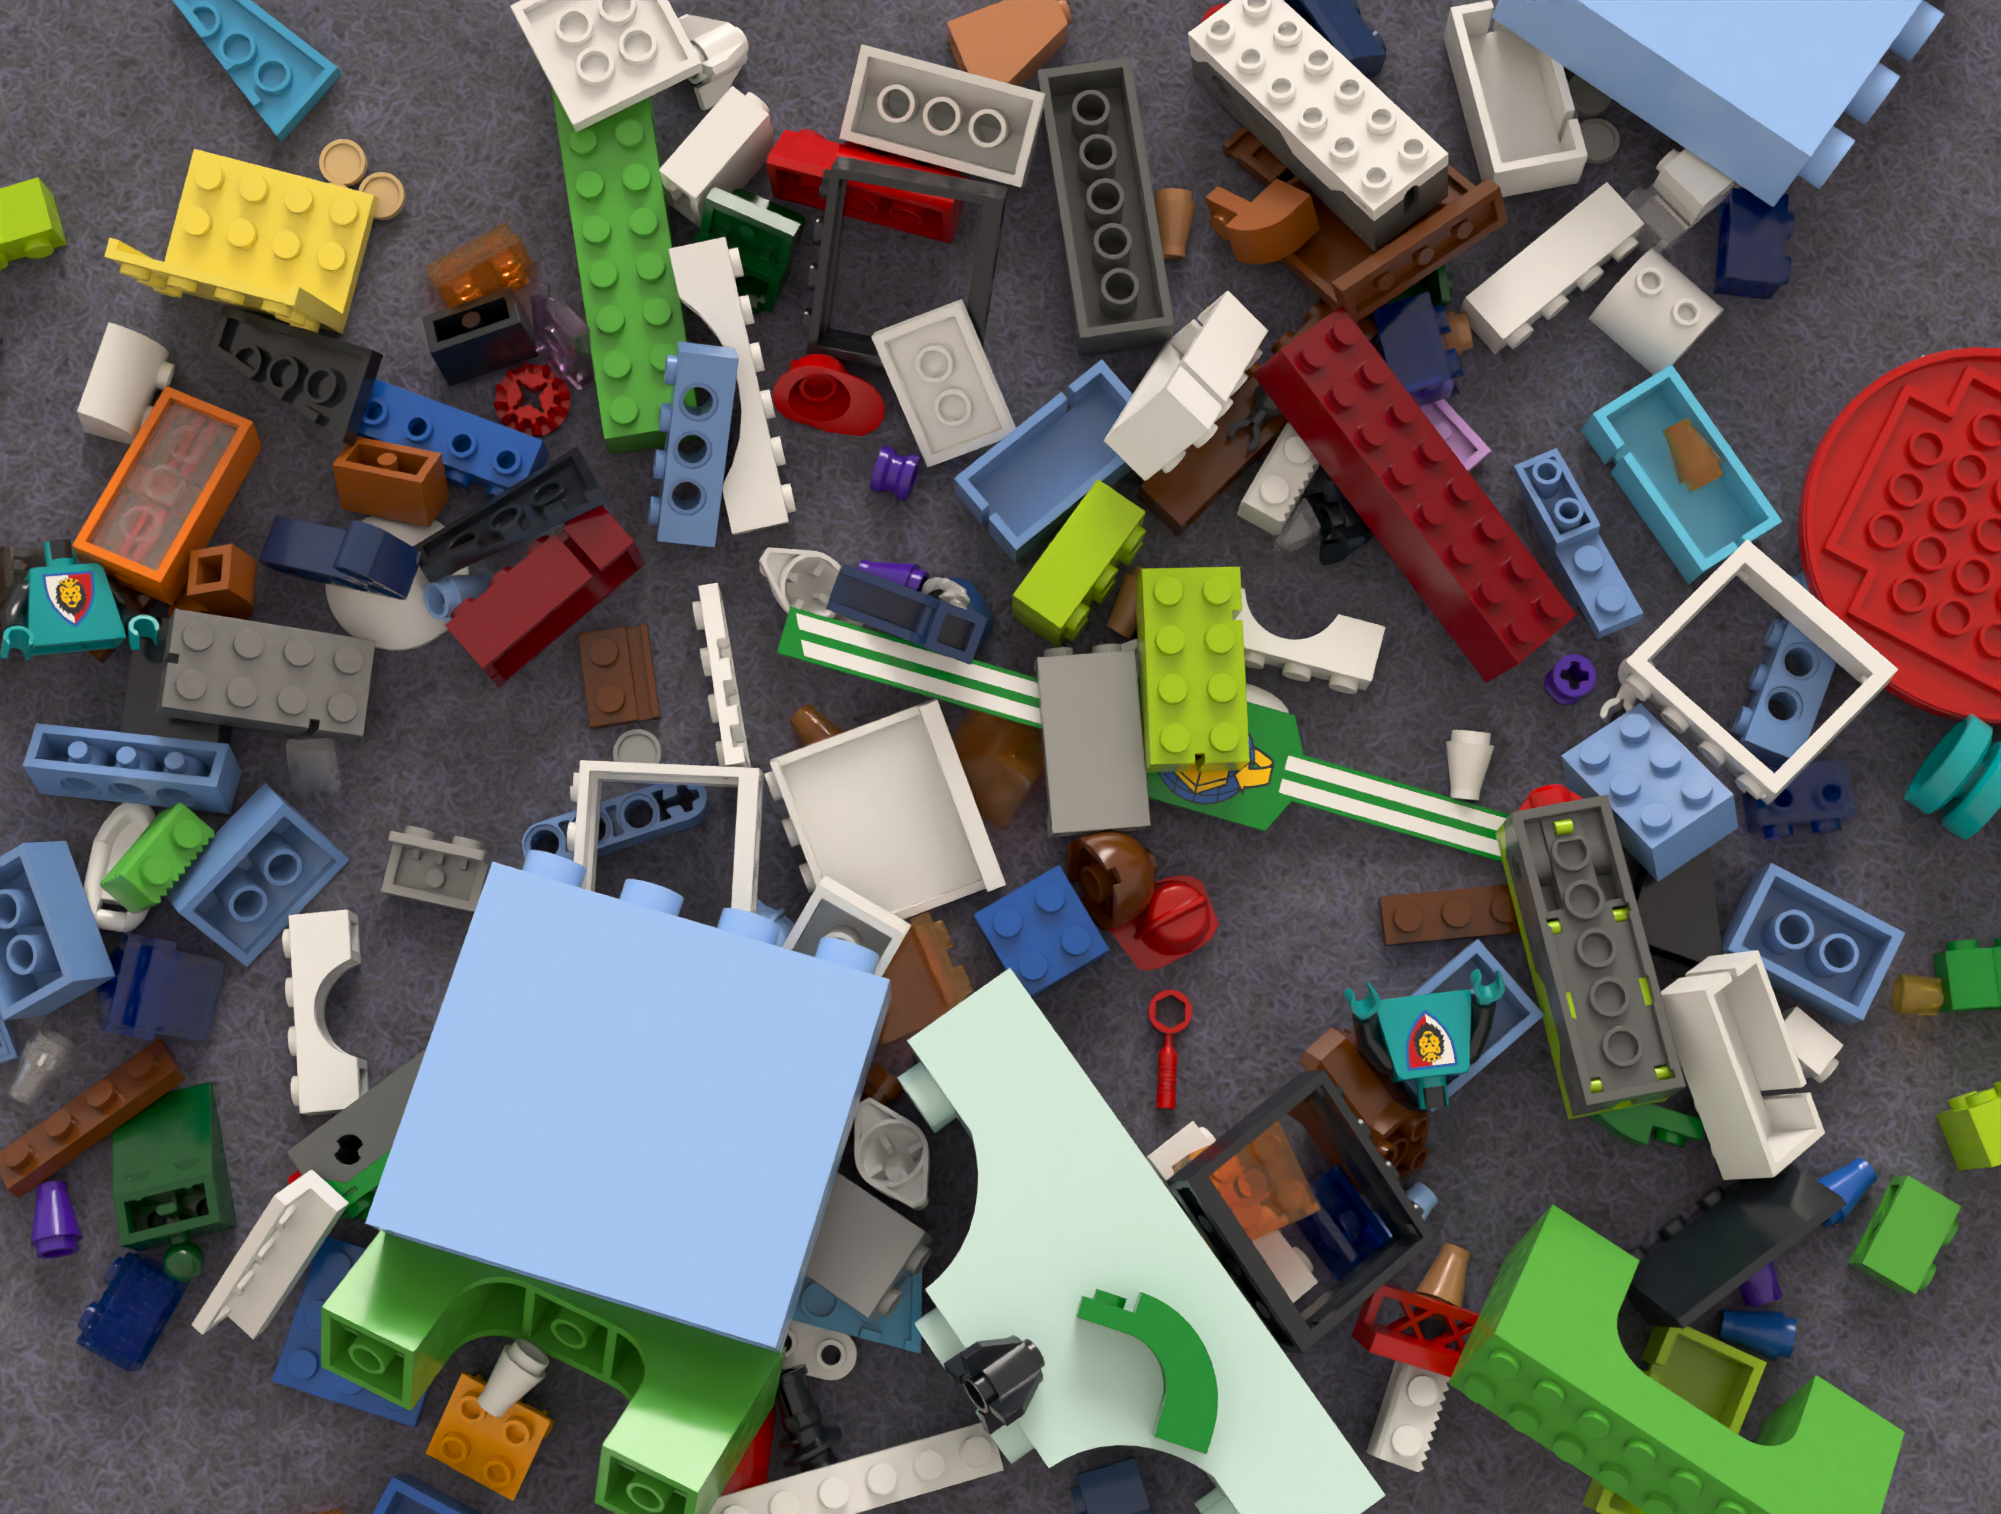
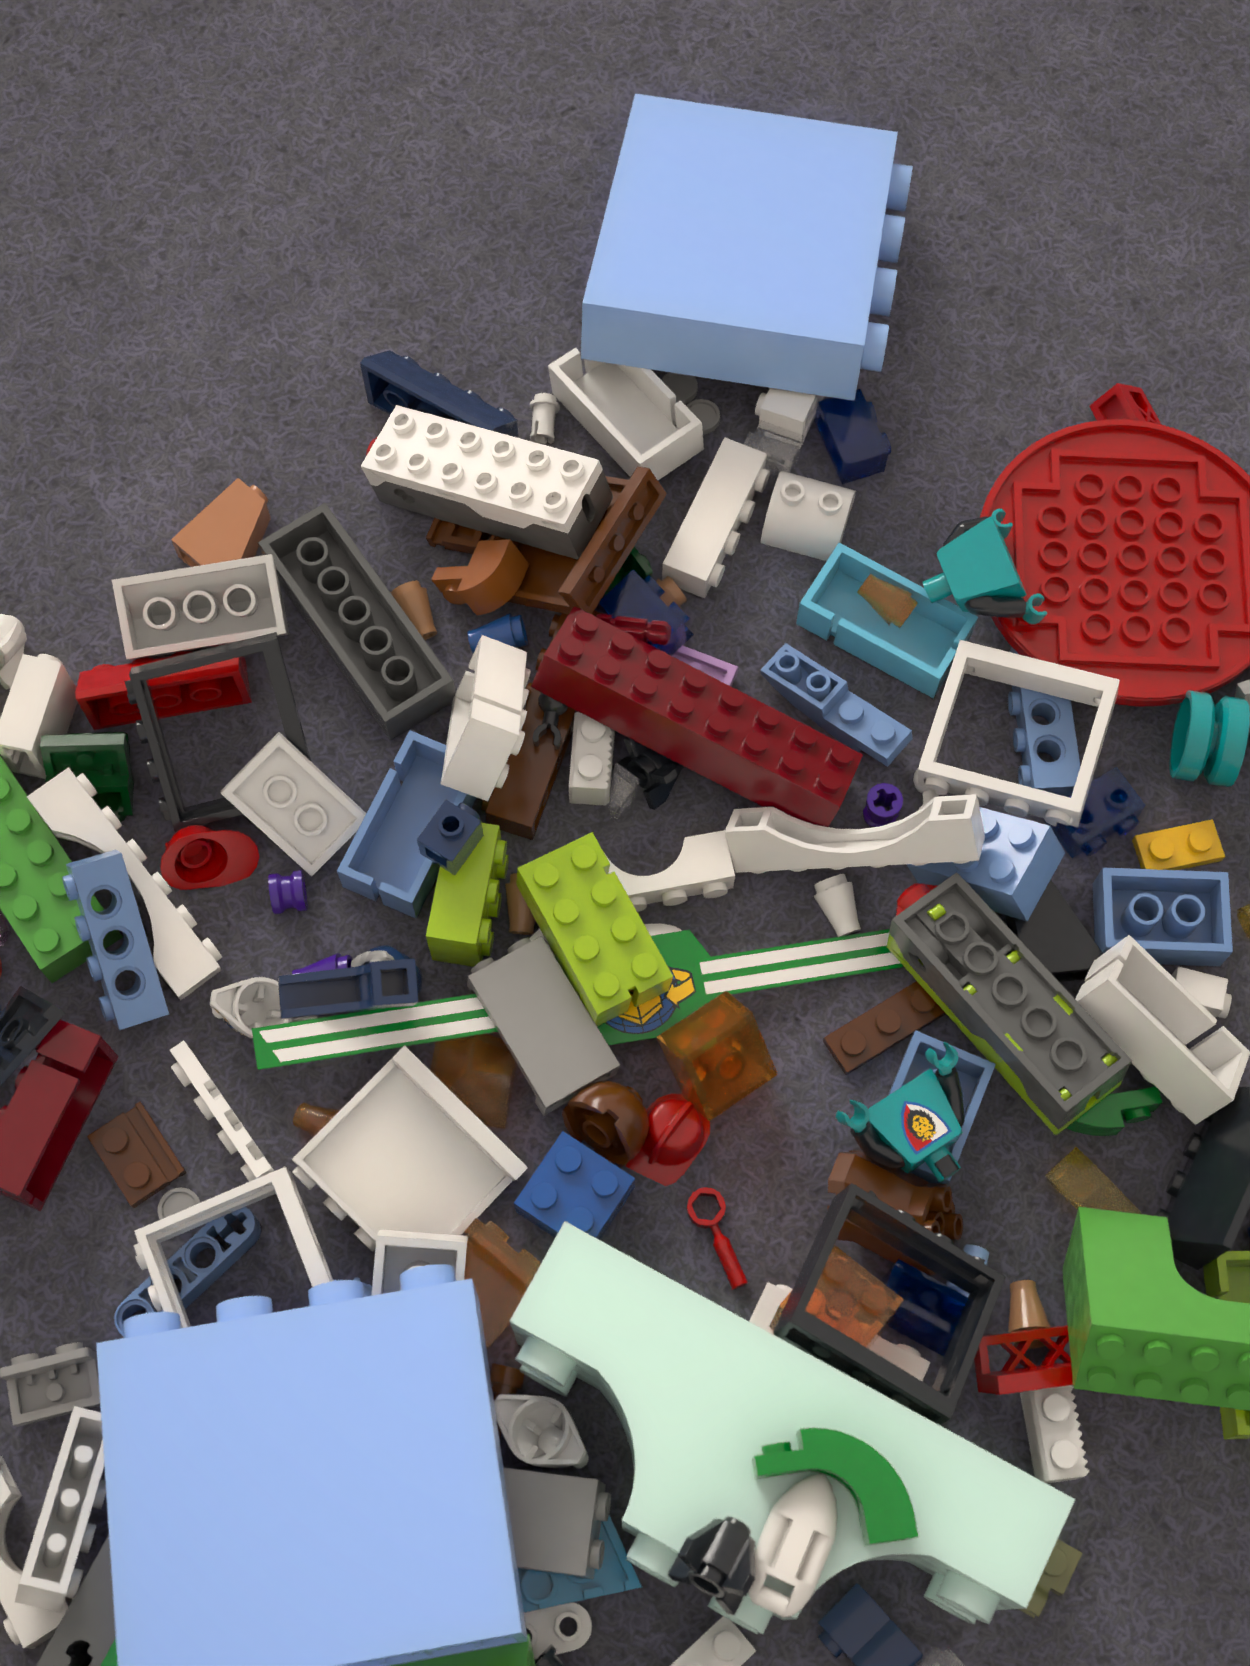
camera: 25 degrees left, 10 degrees down
(395, 1004) = (64, 1516): none -> white brick
(1083, 1398) = (795, 1544): none -> white piece
(1088, 501) = (451, 836): none -> dark blue brick
(1256, 292) = (504, 629): none -> blue cone
(1257, 864) = (717, 1055): none -> clear orange brick
(1403, 364) = (655, 631): none -> dark red axle
(1424, 53) = (543, 421): none -> white pin
(1577, 1186) = (1087, 1185): none -> clear yellow slope
(1606, 743) = (937, 833): none -> white arch
(1811, 474) = (982, 572): none -> teal torso
(1870, 877) = (1179, 847): none -> yellow plate

